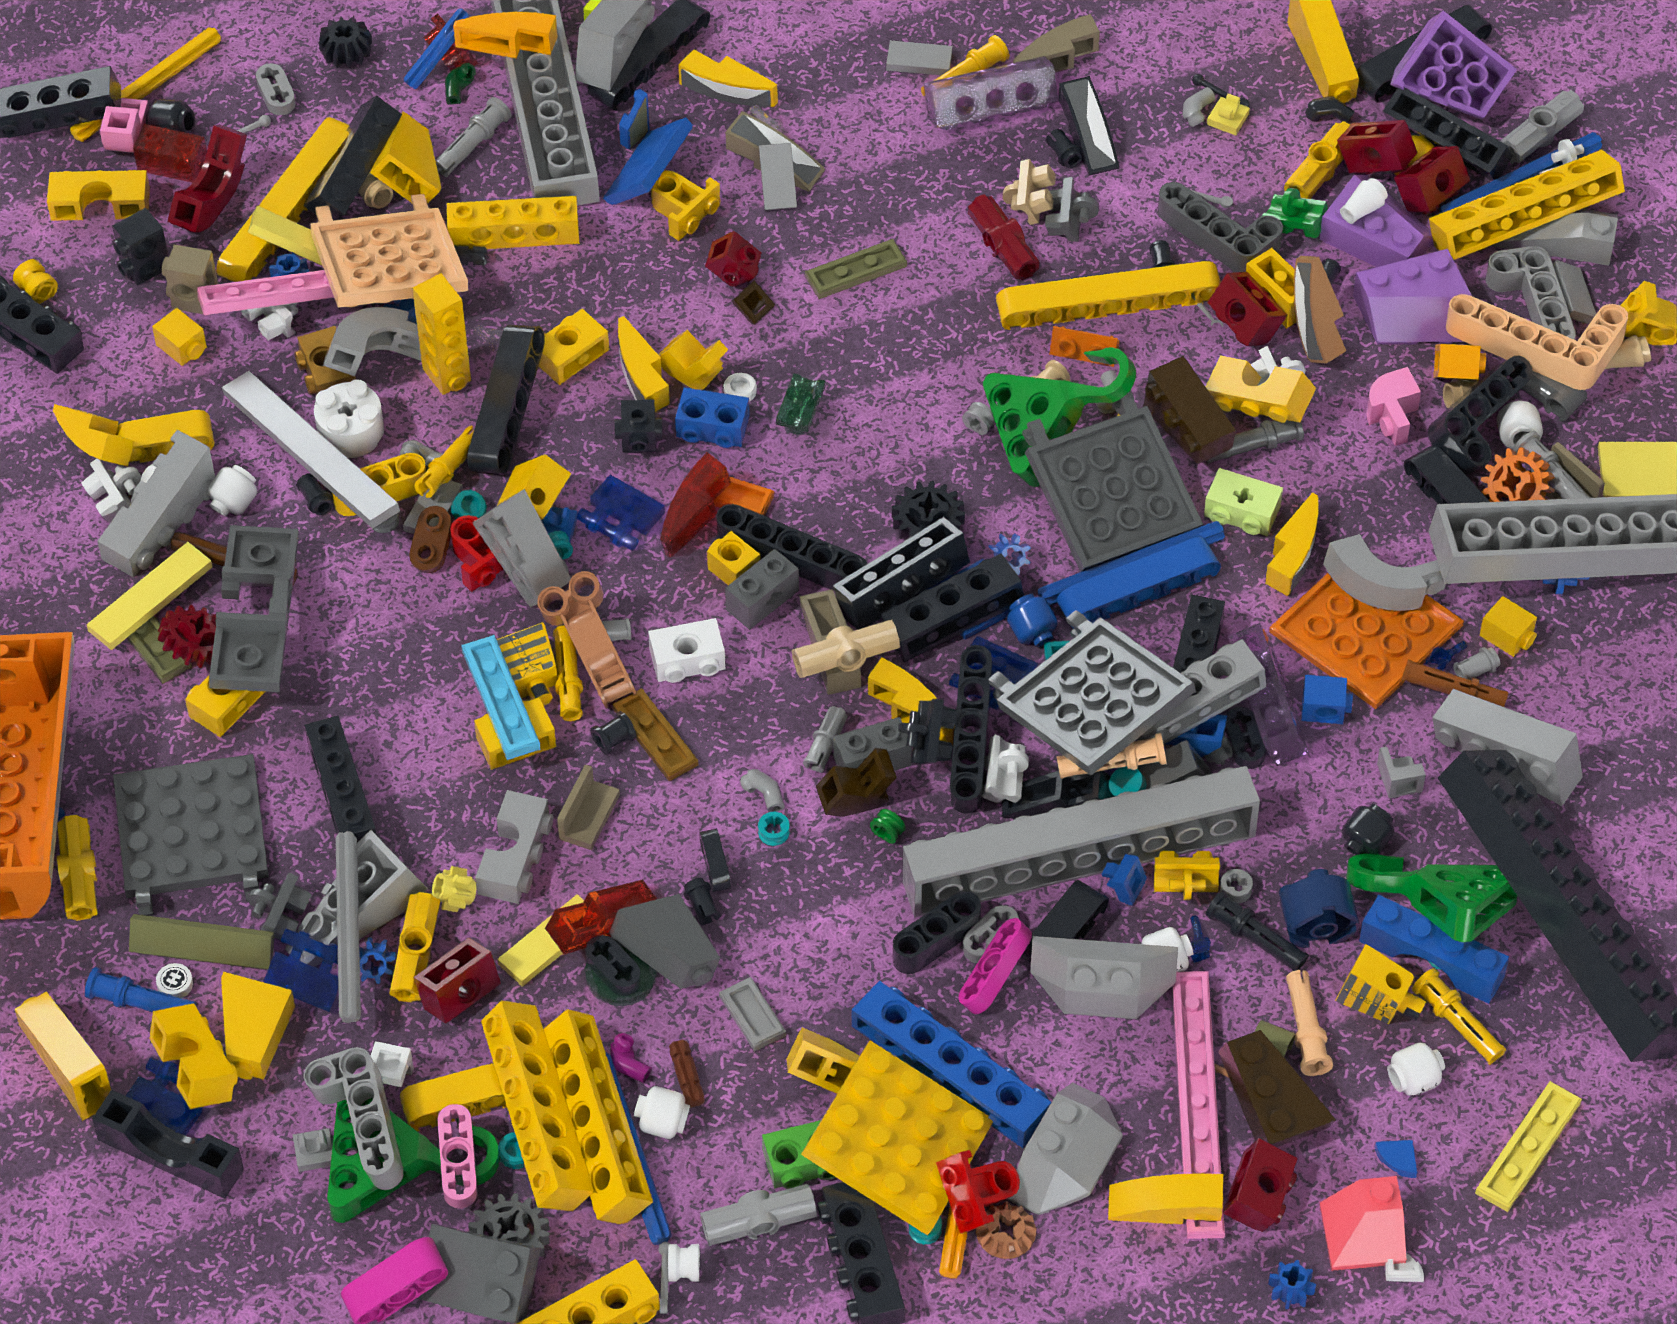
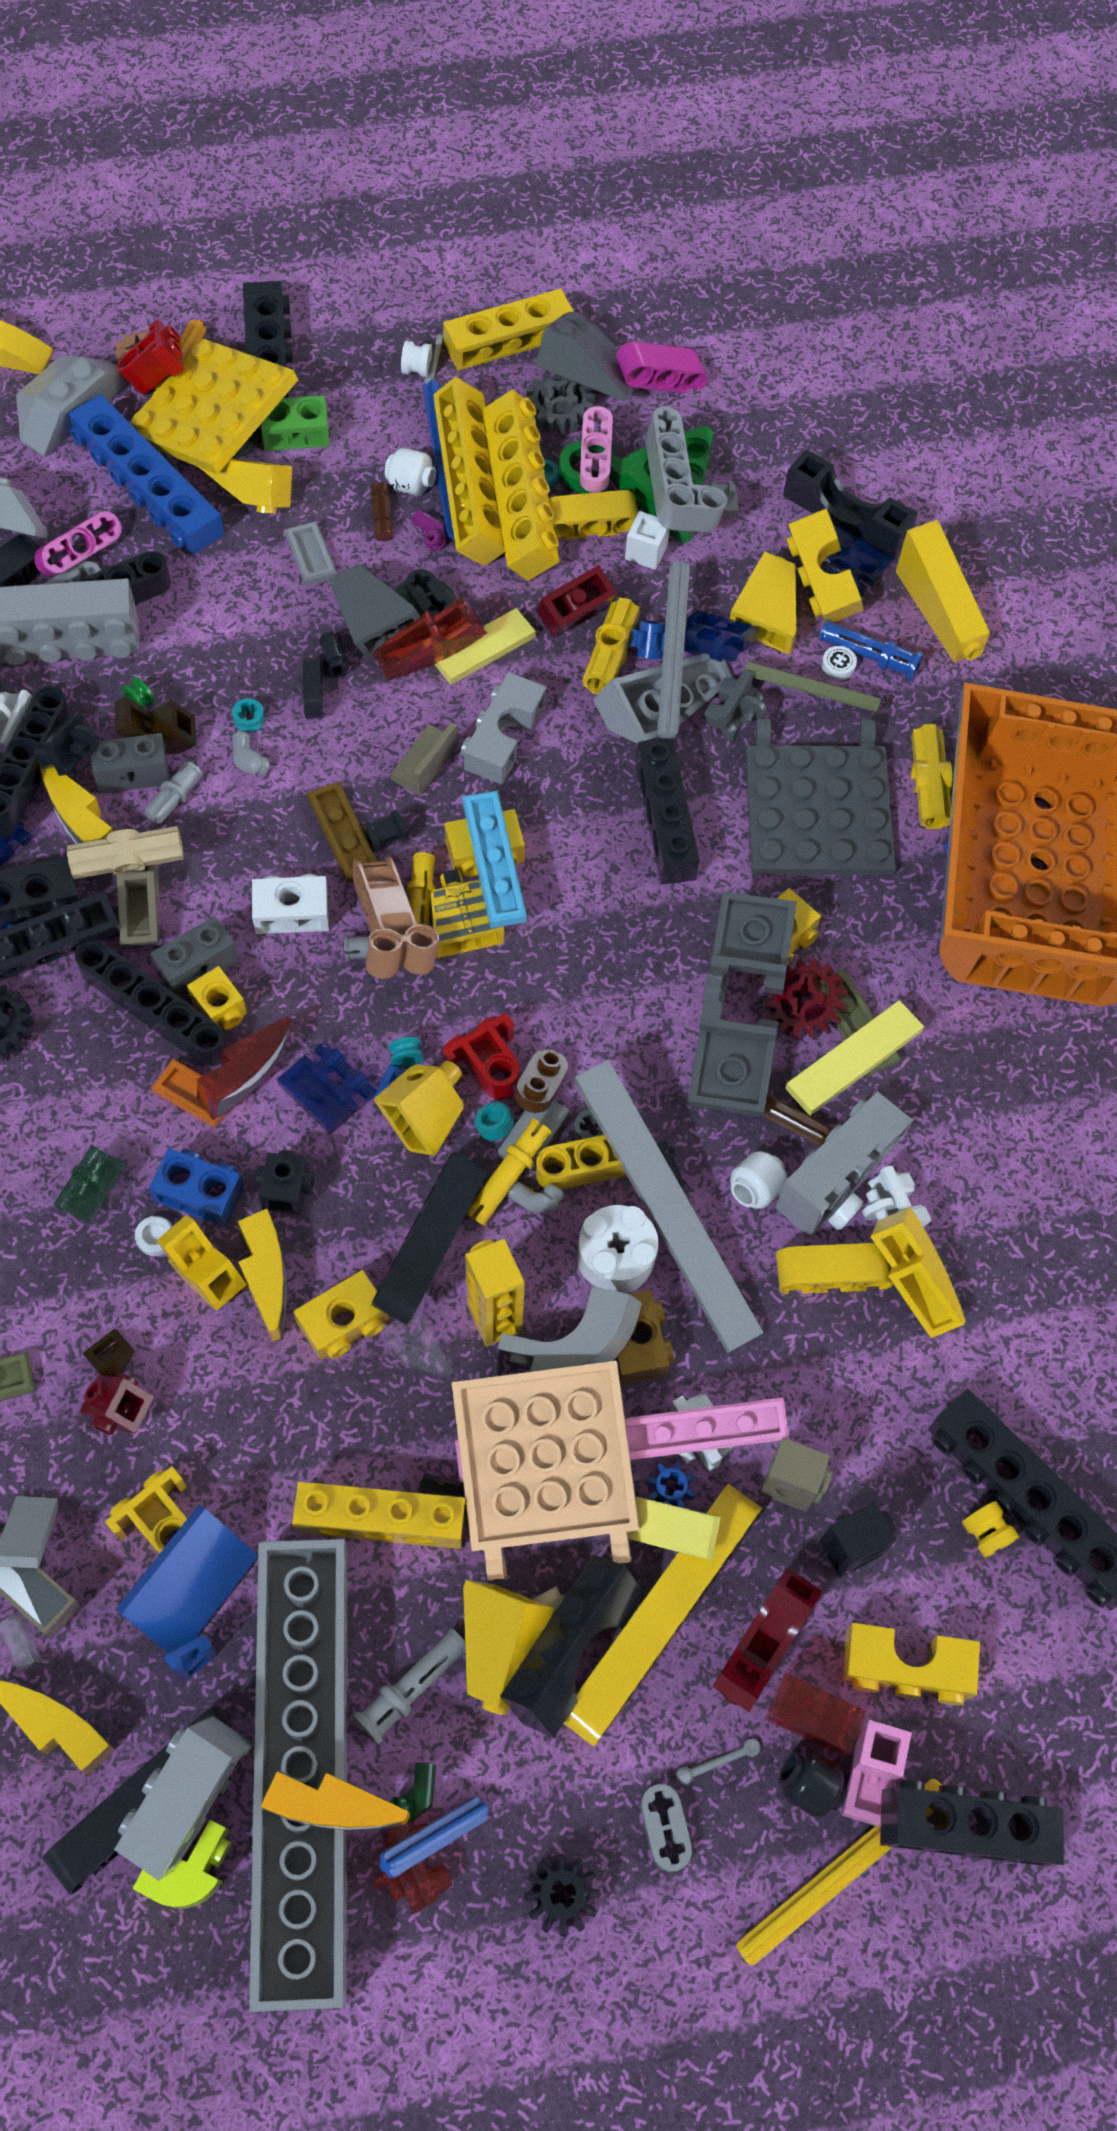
camera: 175 degrees left, 10 degrees up
(179, 337) = (811, 1408): yellow brick -> none
(454, 889) = (567, 692): light yellow gear -> none
(523, 547) = (445, 1019): light grey wedge -> none
(758, 1214) = (347, 384): light grey piece -> none

